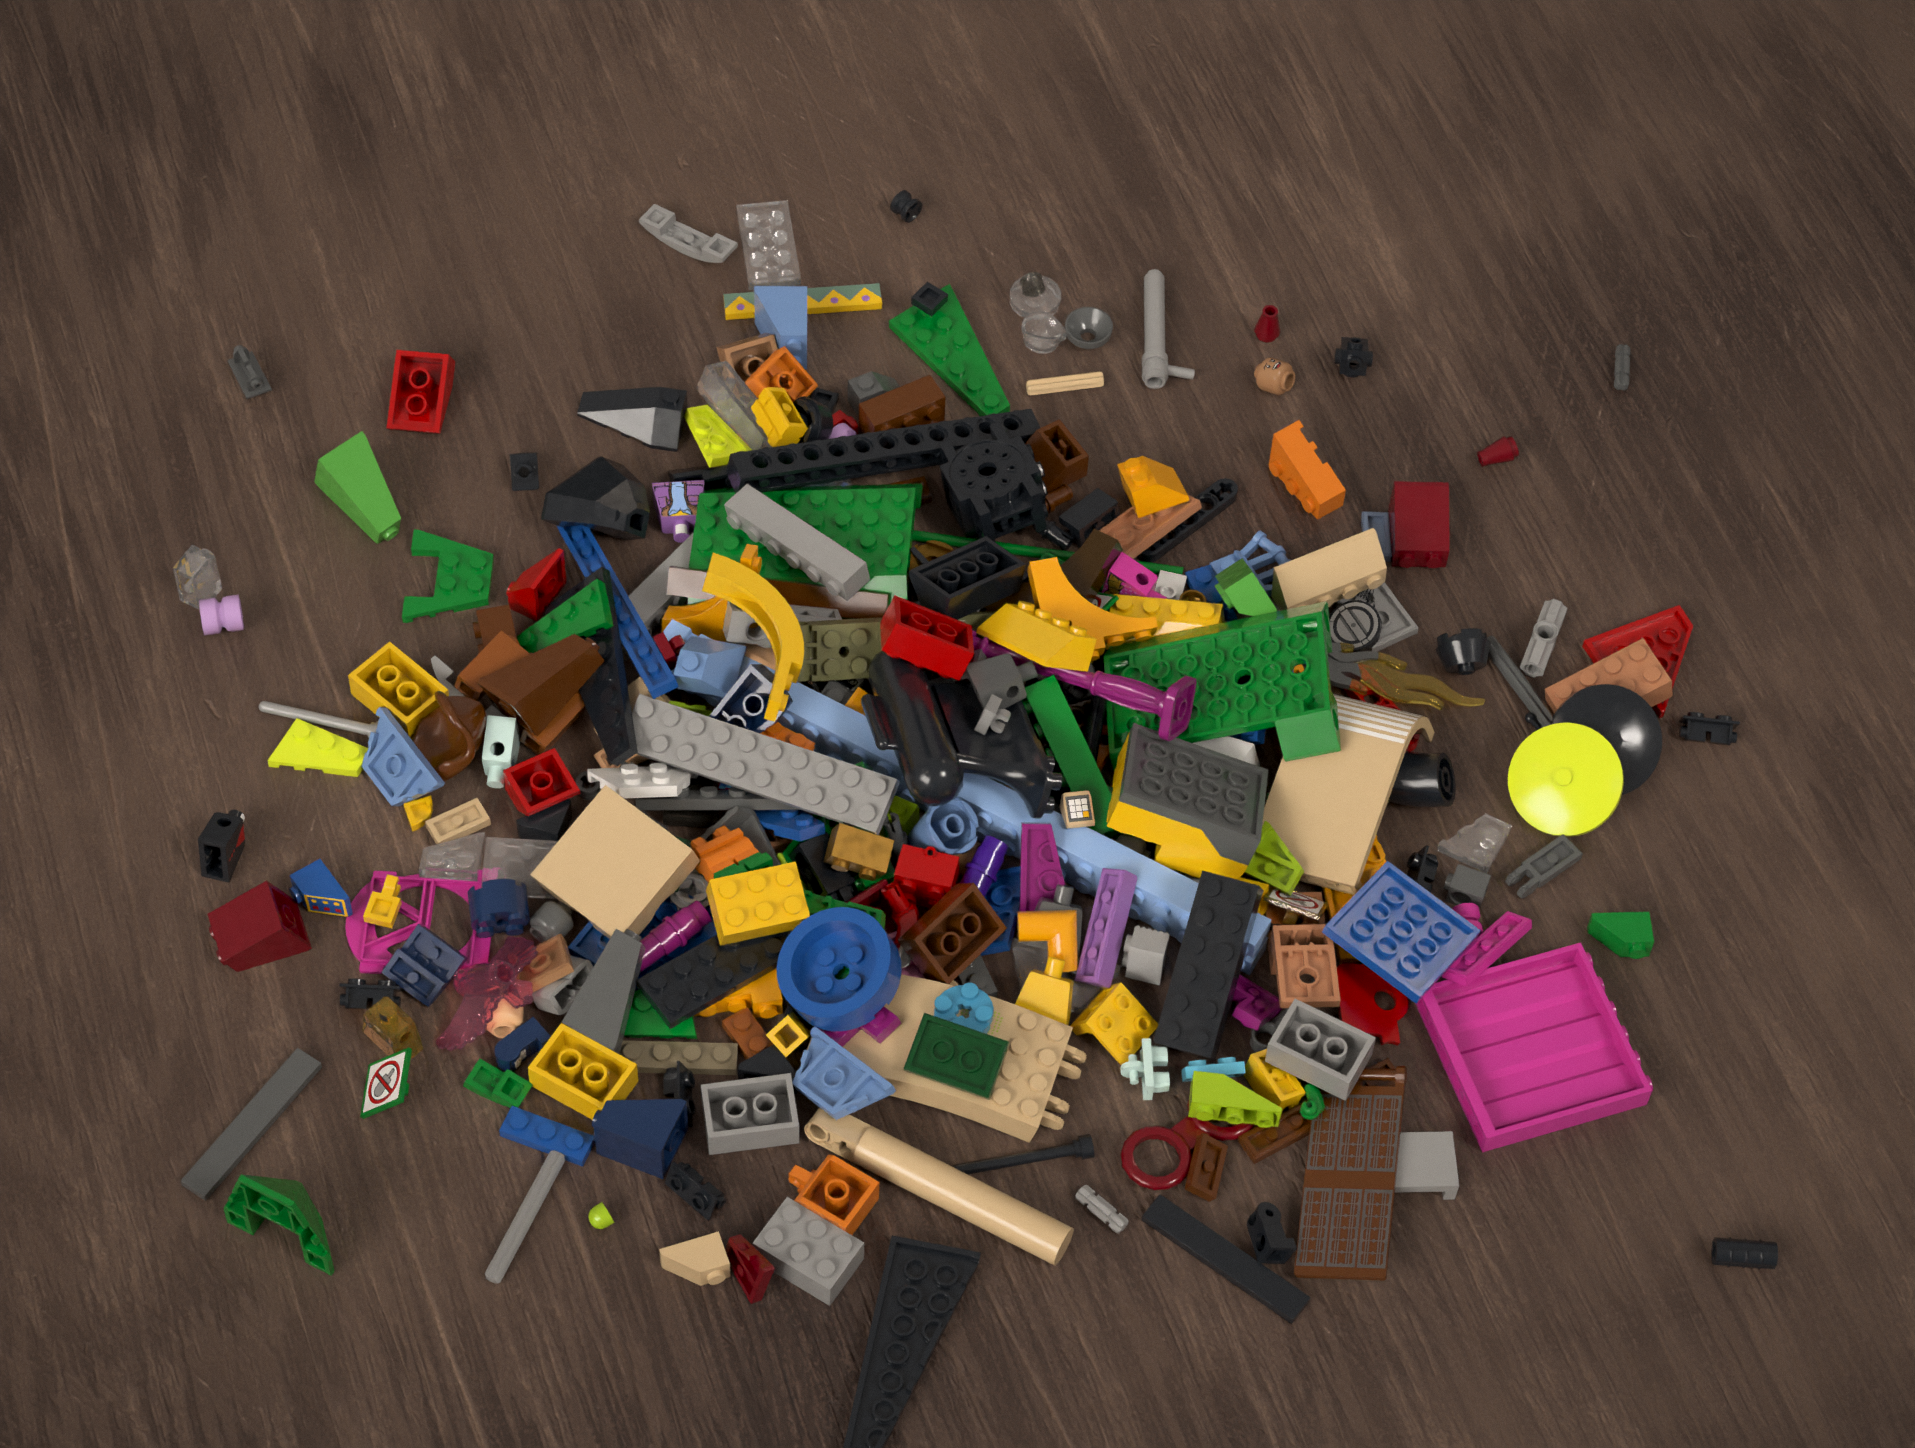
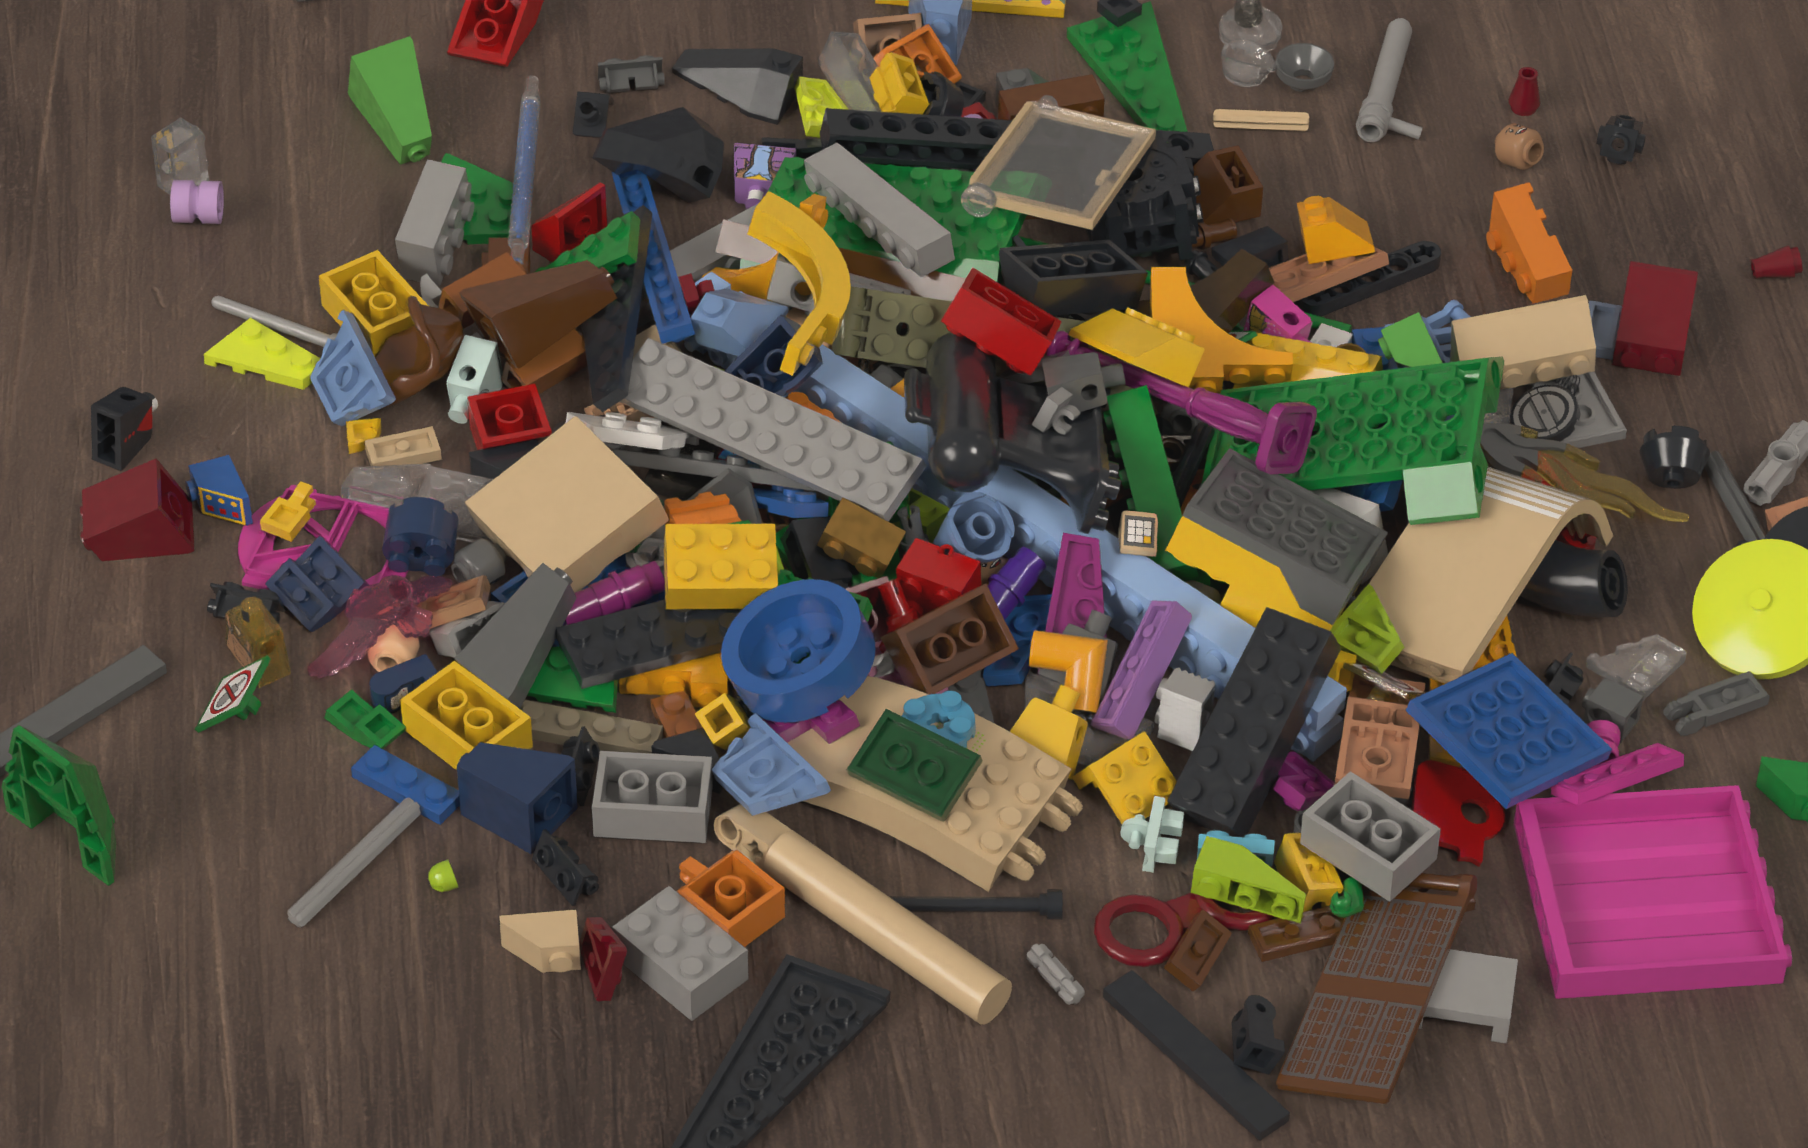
camera: 15 degrees right, 10 degrees down
(430, 606) = (434, 222): none -> light grey brick
(486, 538) = (524, 170): none -> clear hose
(535, 427) = (616, 73): none -> dark grey hinge
(929, 474) = (1057, 165): none -> clear door

